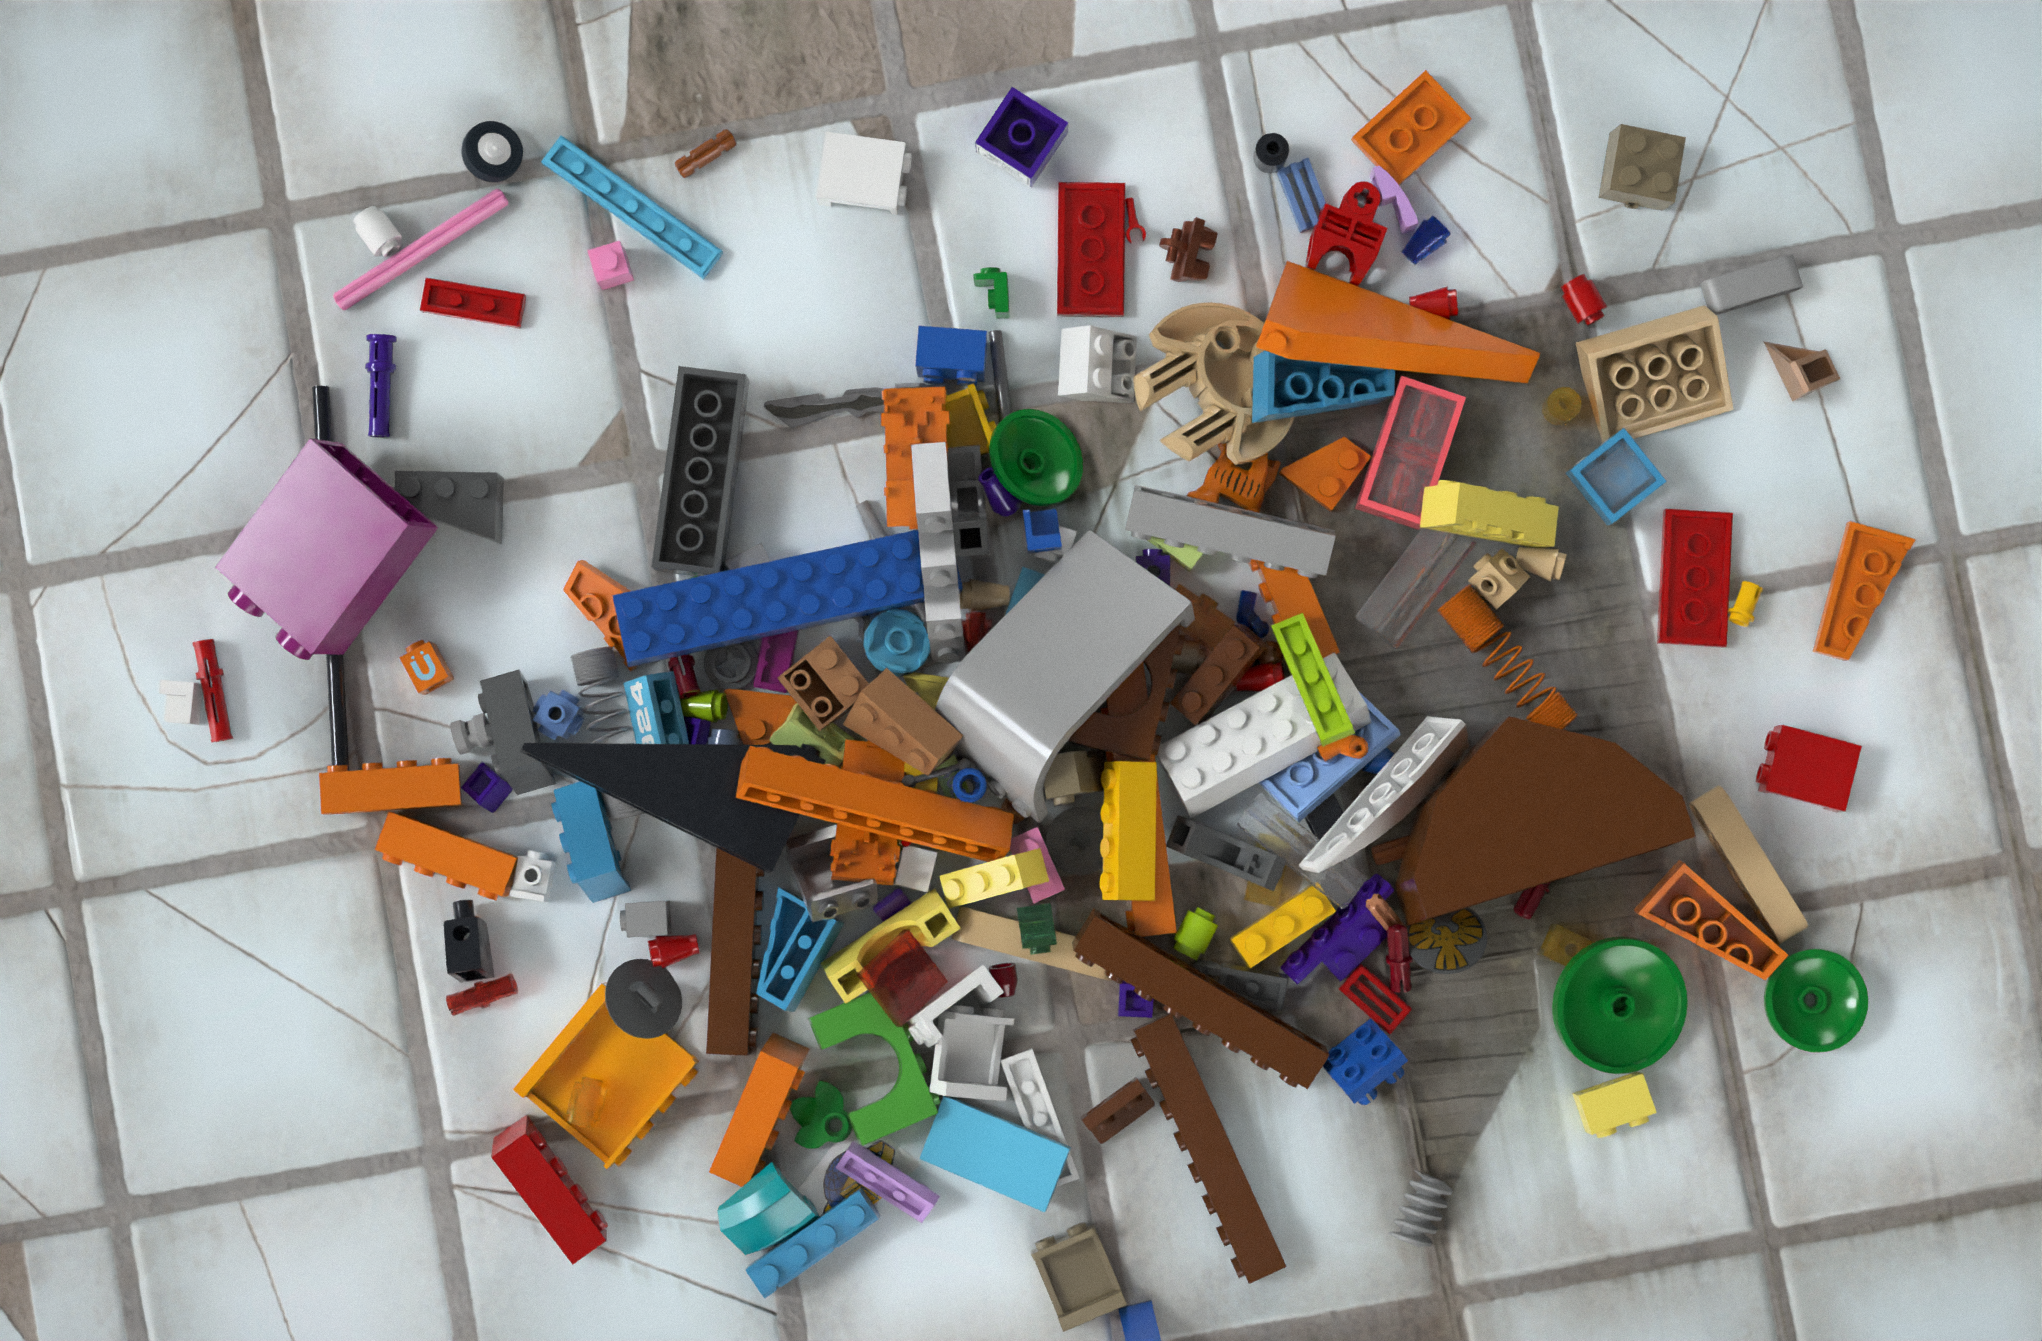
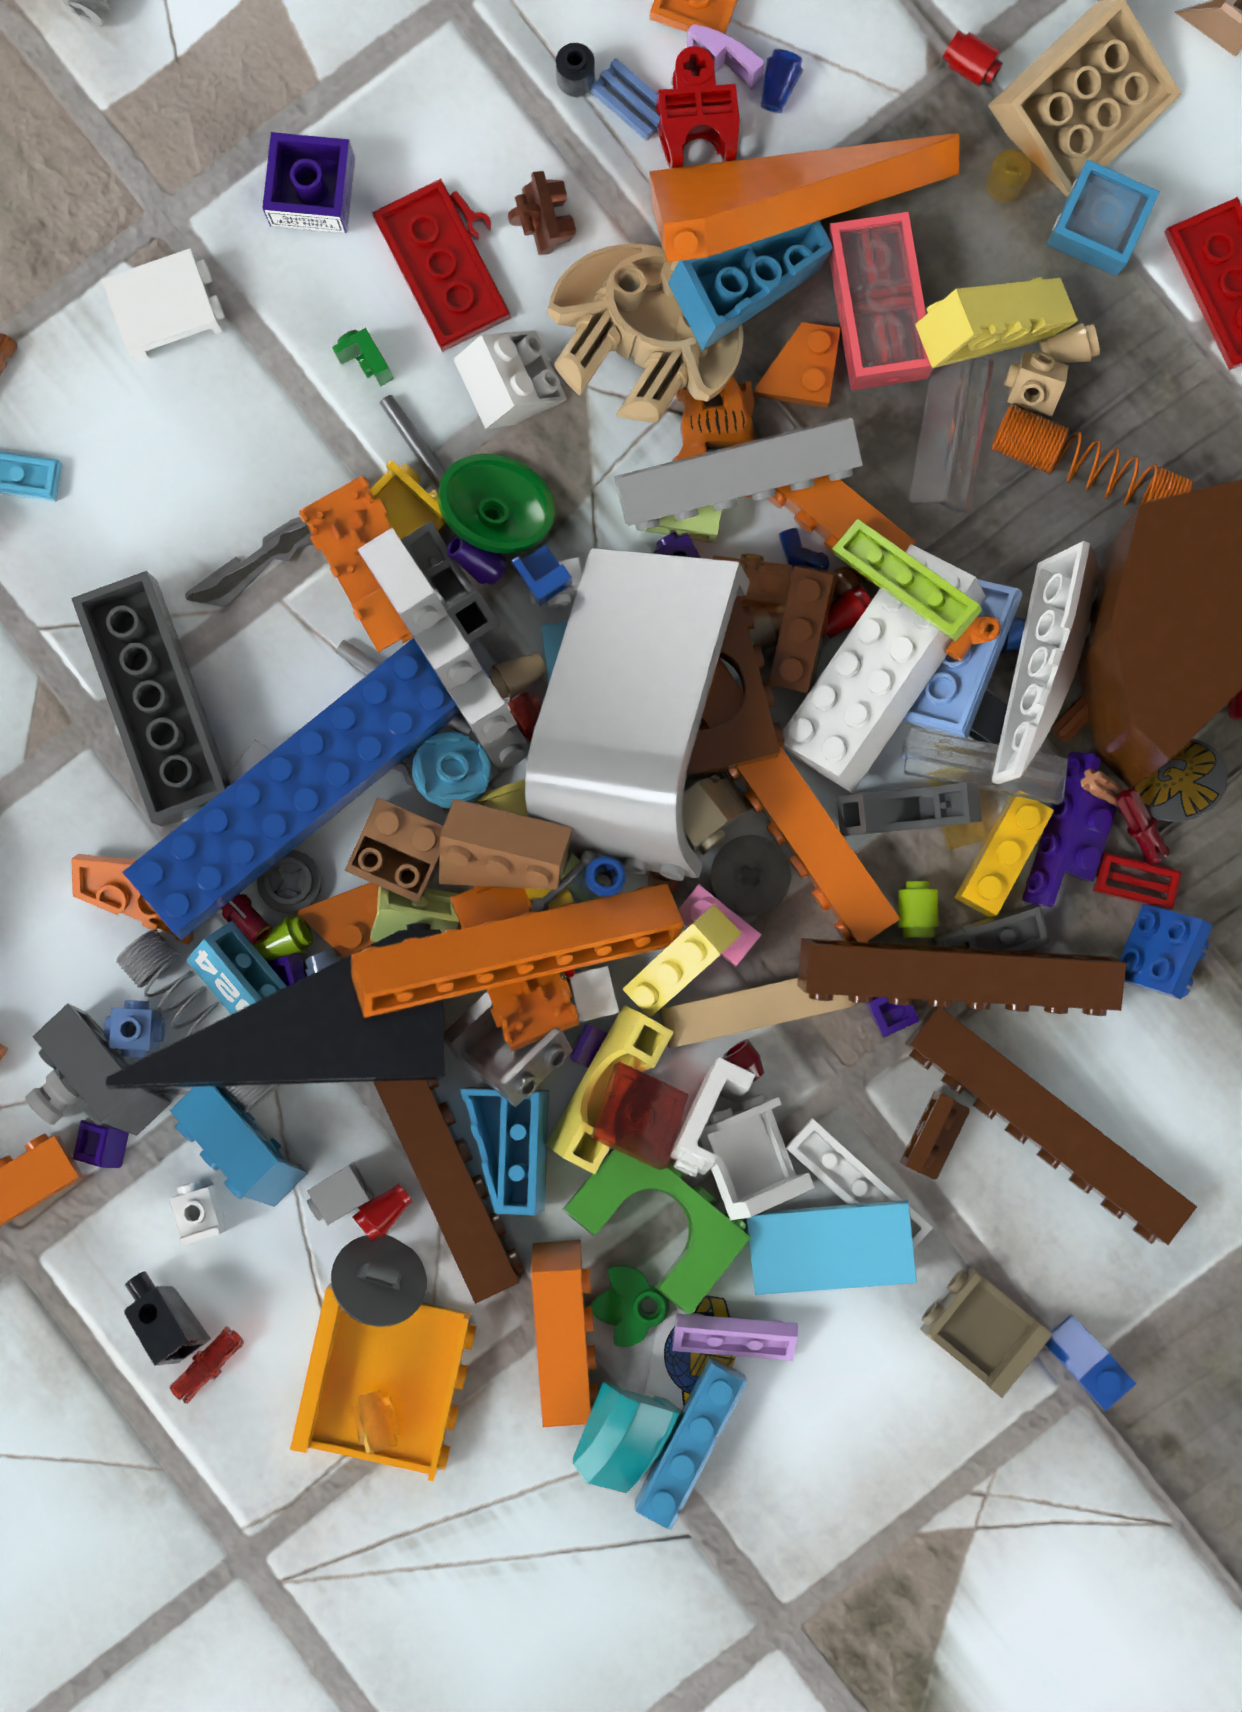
camera: 30 degrees left, 0 degrees up
(447, 854) = (91, 1237): orange brick -> none
(548, 1189) = (382, 1535): red wedge -> none
(775, 658) = (332, 851): magenta plate -> none
(951, 355) = (352, 441): blue brick -> none
(1037, 928) = (753, 989): clear green brick -> none
(1128, 831) = (797, 837): yellow brick -> none
(1438, 302) = (827, 134): red cone -> none

